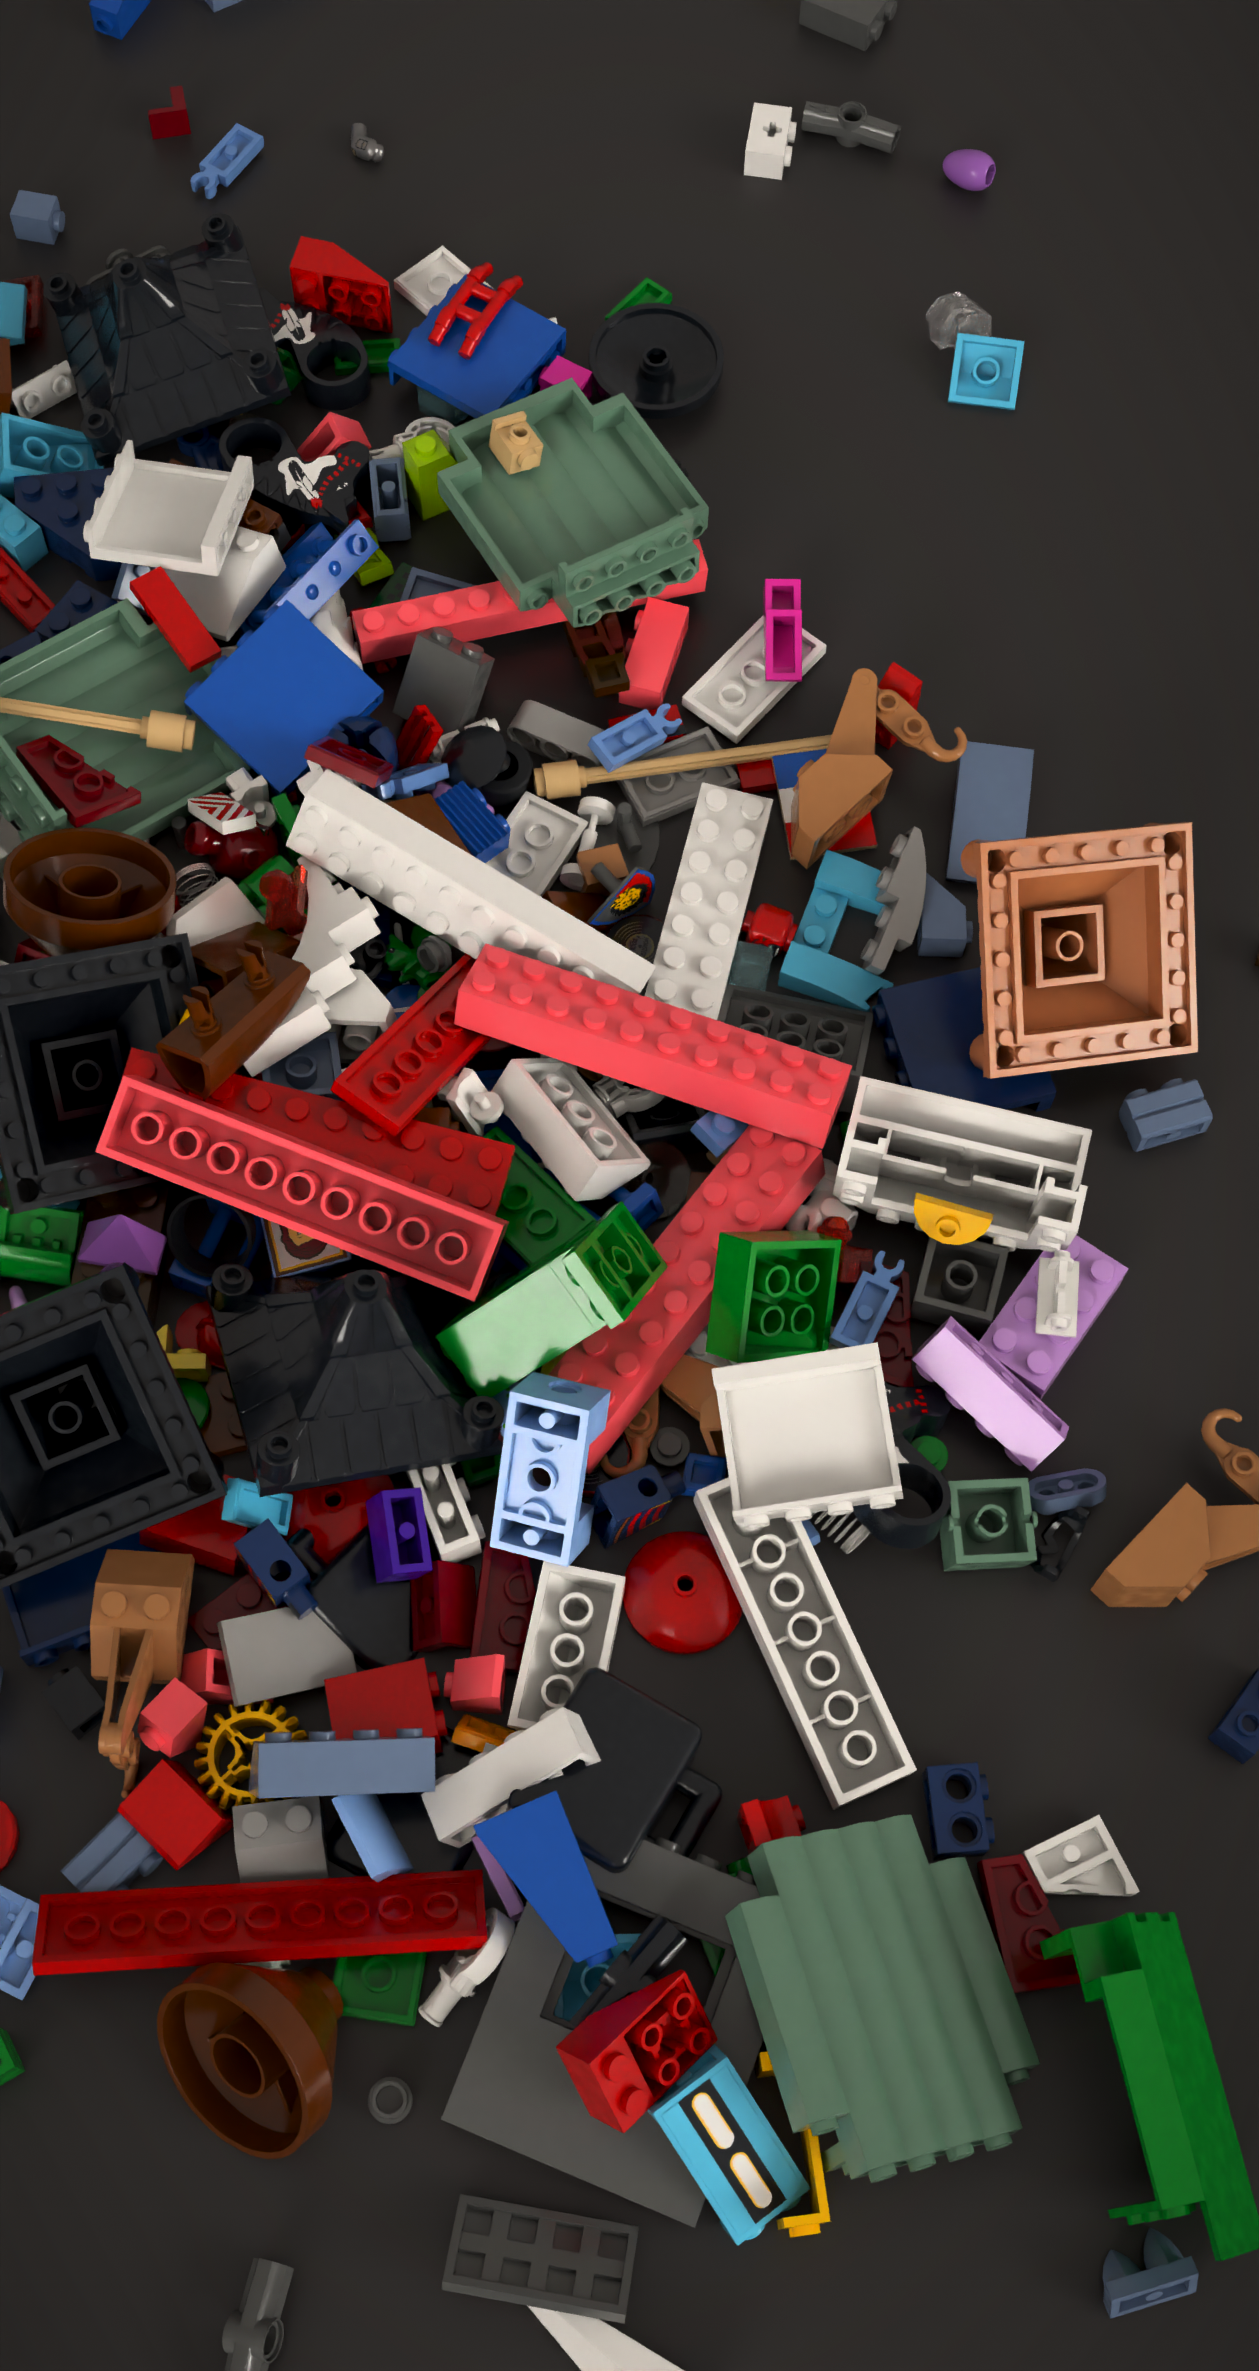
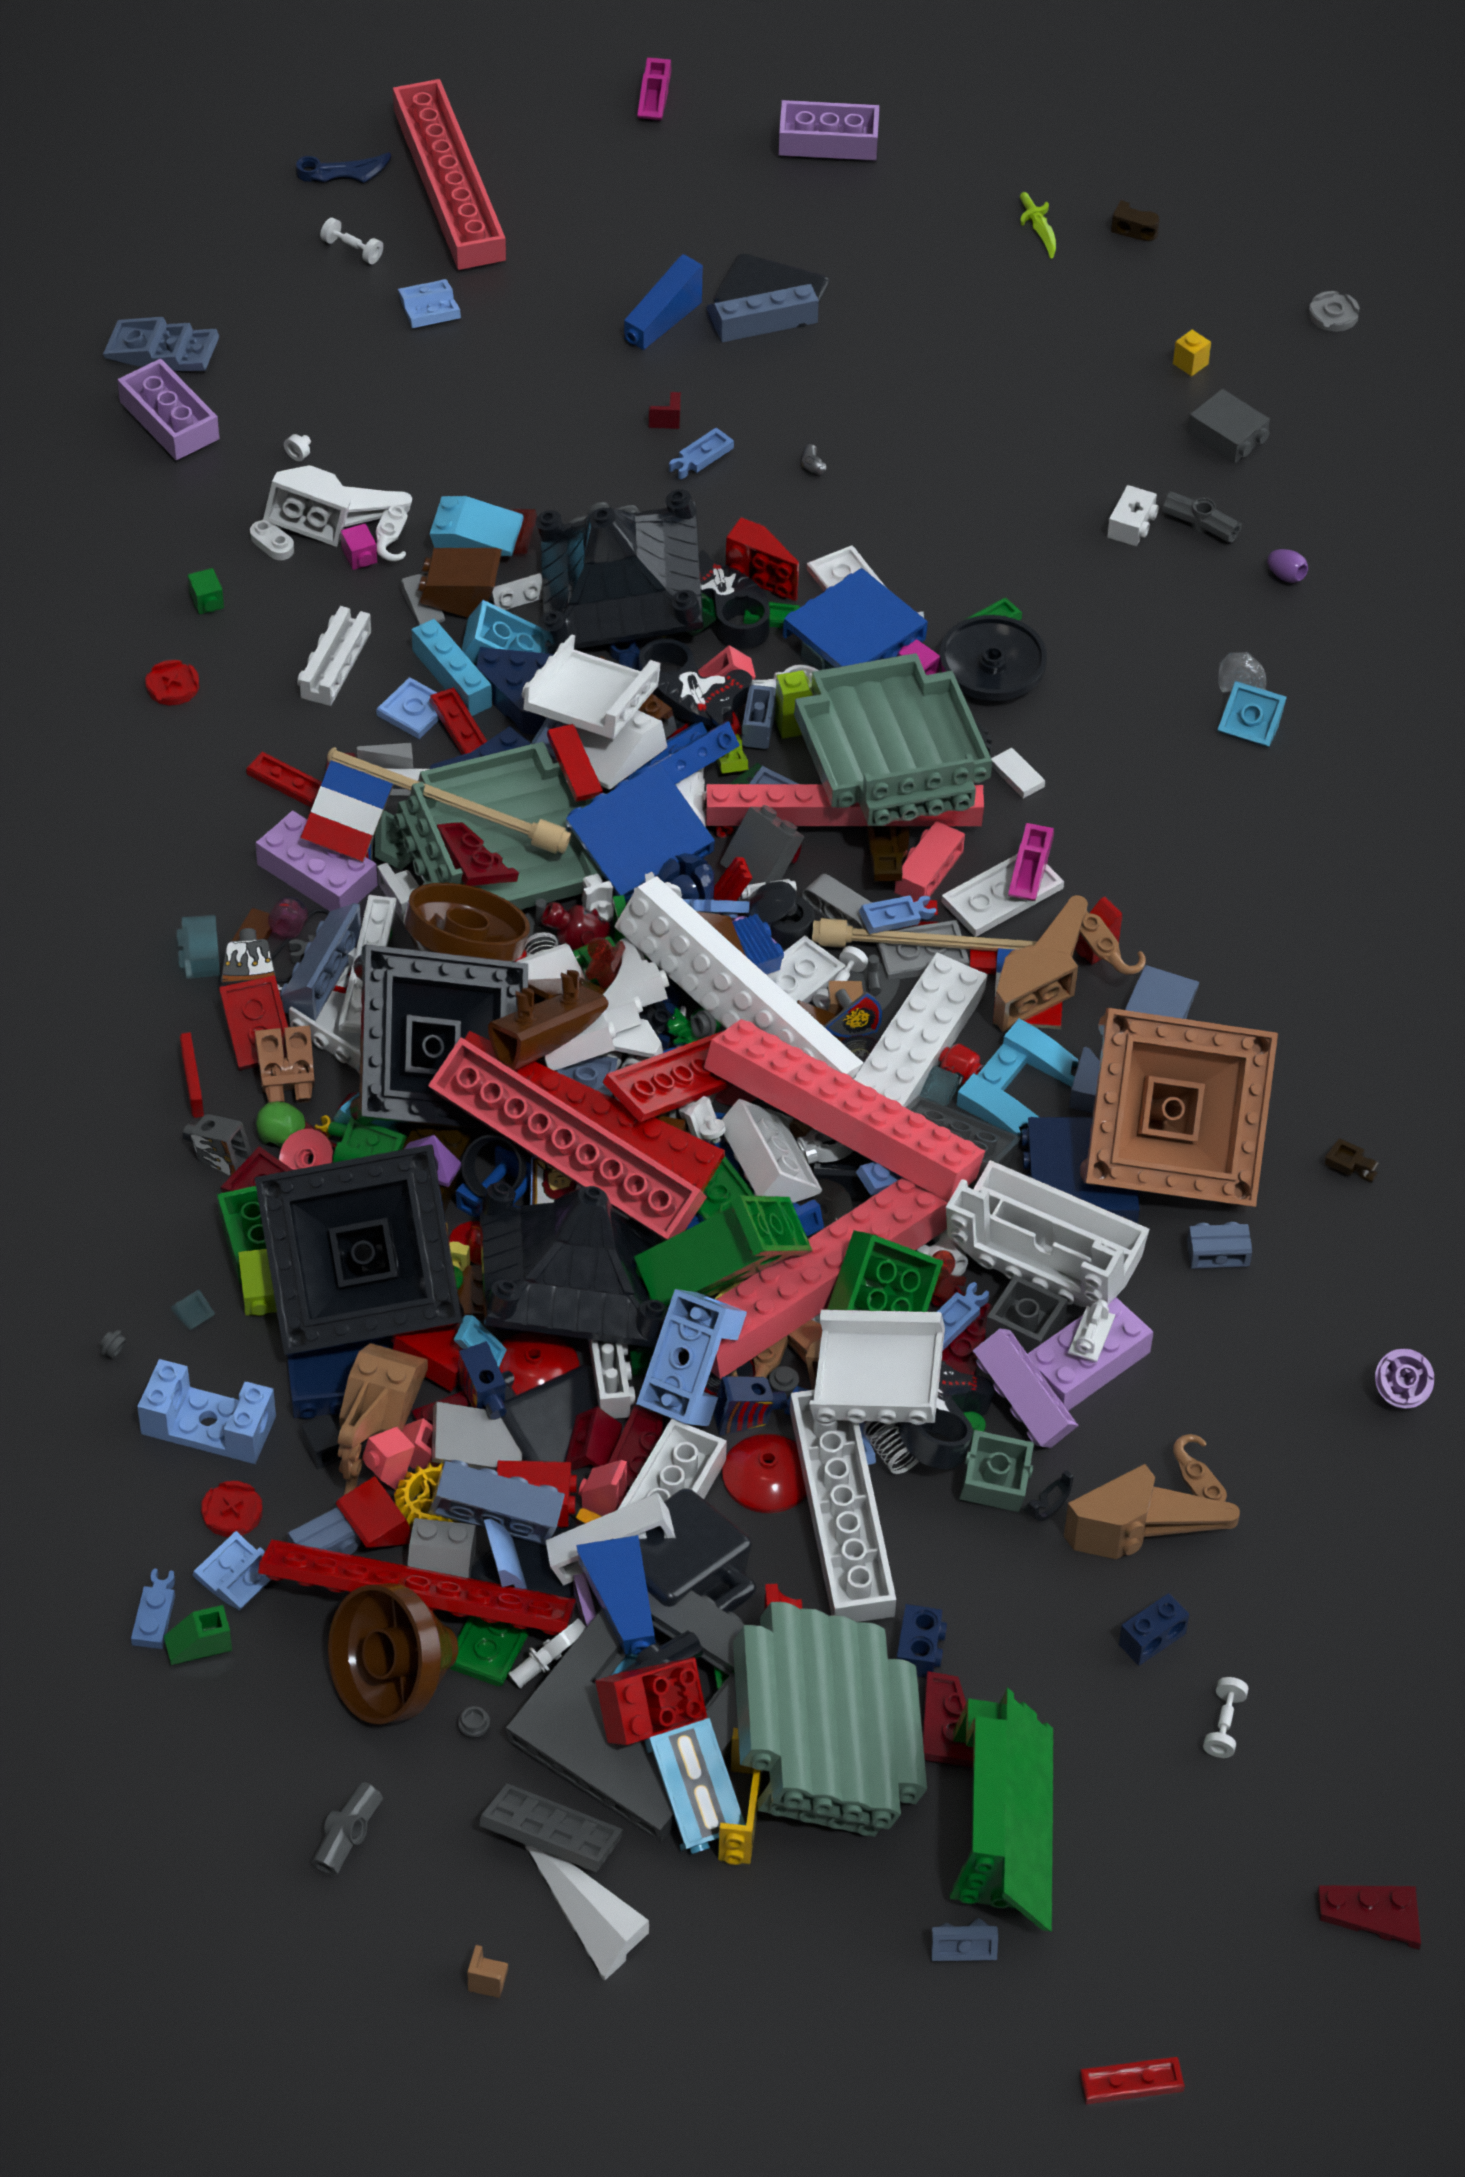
camera: 15 degrees right, 15 degrees down
(37, 217) = (544, 468): sand blue brick -> none
(222, 813) = (574, 900): white tile -> none
(349, 761) = (675, 878): dark red tile -> none
(398, 1535) = (574, 1382): dark purple brick -> none
(479, 320) = (860, 602): red piece -> none
(515, 443) = (860, 690): tan brick -> none
(729, 508) = (1017, 773): none -> white tile
(903, 891) = (1063, 1061): light grey slope -> none
(950, 1221) = (1026, 1267): yellow plate -> none
(1067, 1490) = (1053, 1466): sand blue plate -> none
(1081, 1863) = (992, 1684): white wing -> none

